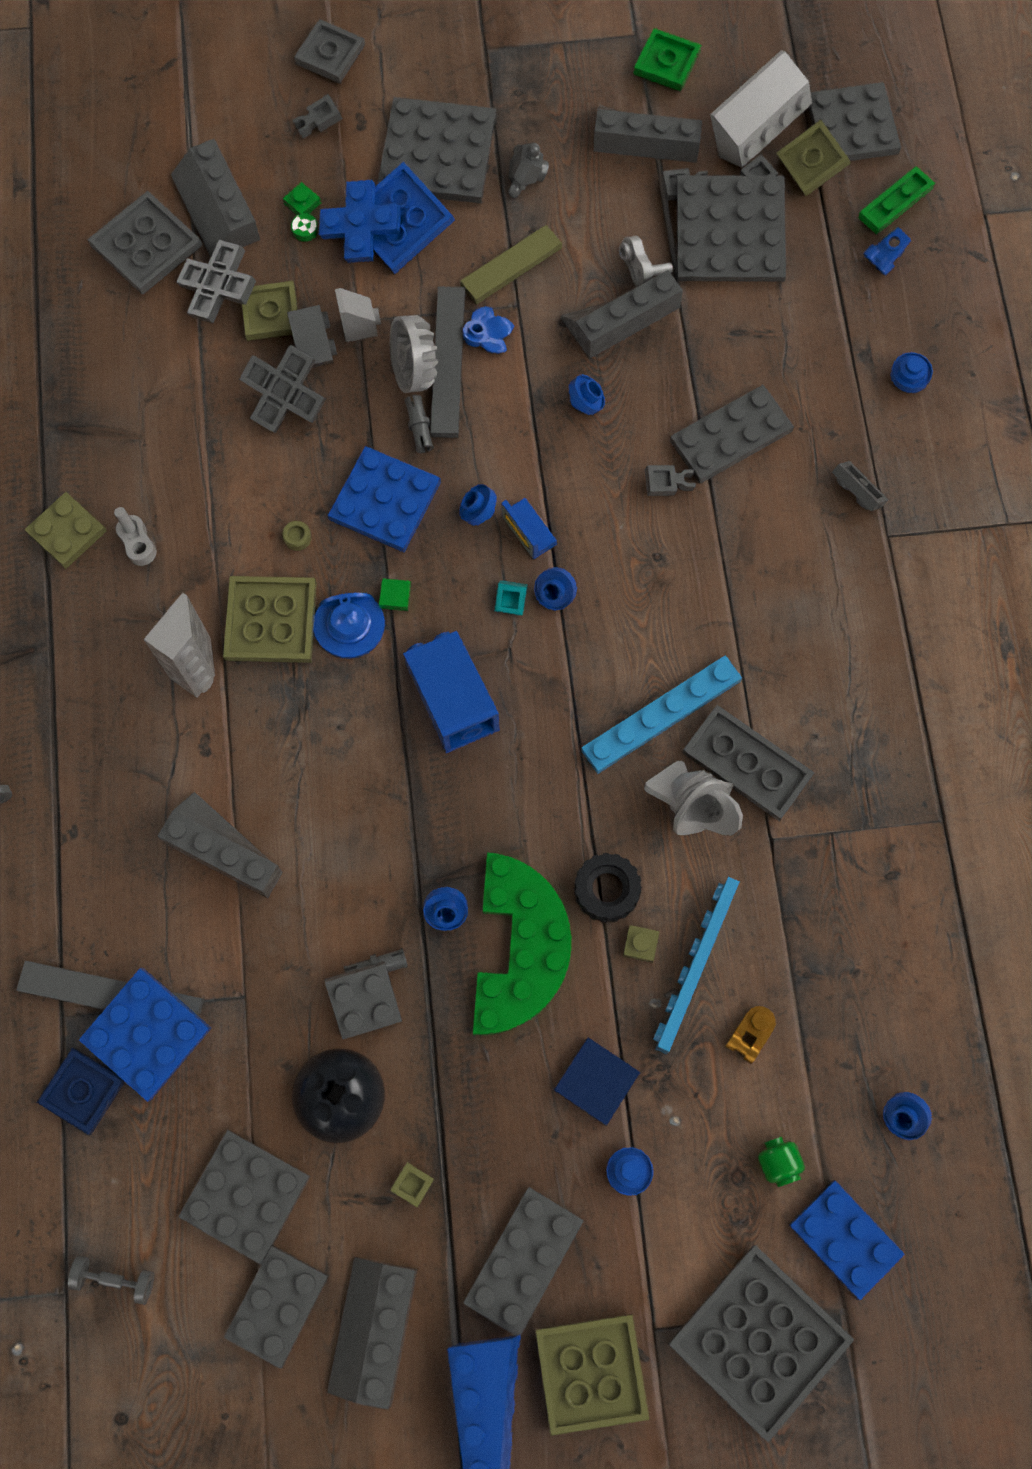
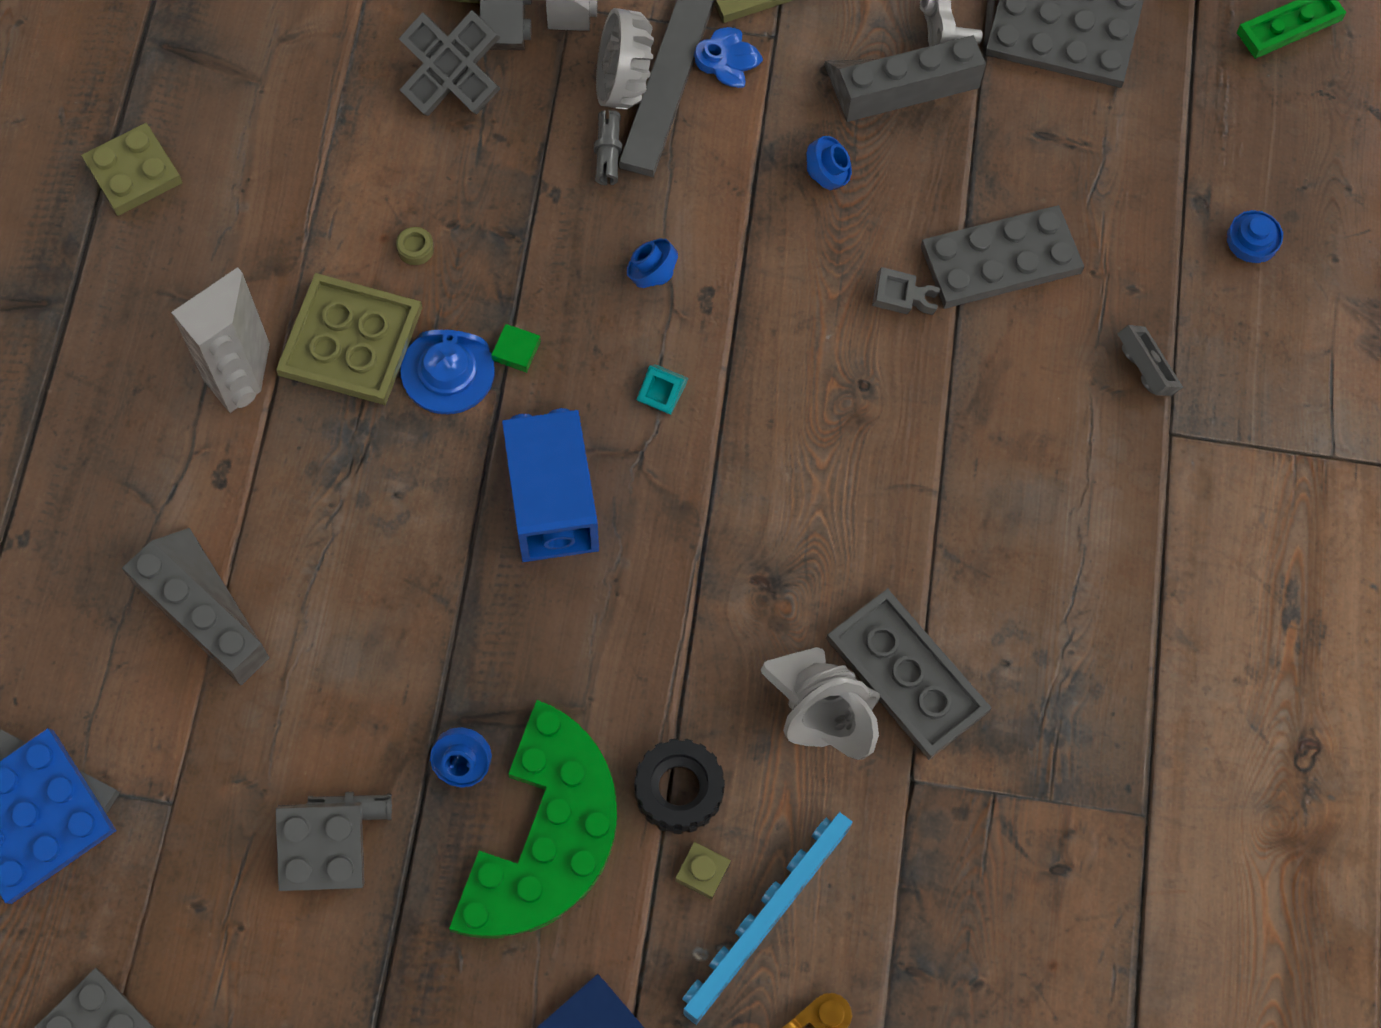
camera: 10 degrees right, 5 degrees down
(134, 536) = (213, 197): light grey piece -> none
(356, 1105) = (274, 965): black piece -> none
(384, 499) = (538, 228): blue plate -> none
(528, 527) = (708, 307): blue panel -> none
(555, 588) = (720, 390): blue plate -> none
(661, 714) = (813, 583): dark azure plate -> none
(883, 254) = (1257, 84): blue plate -> none

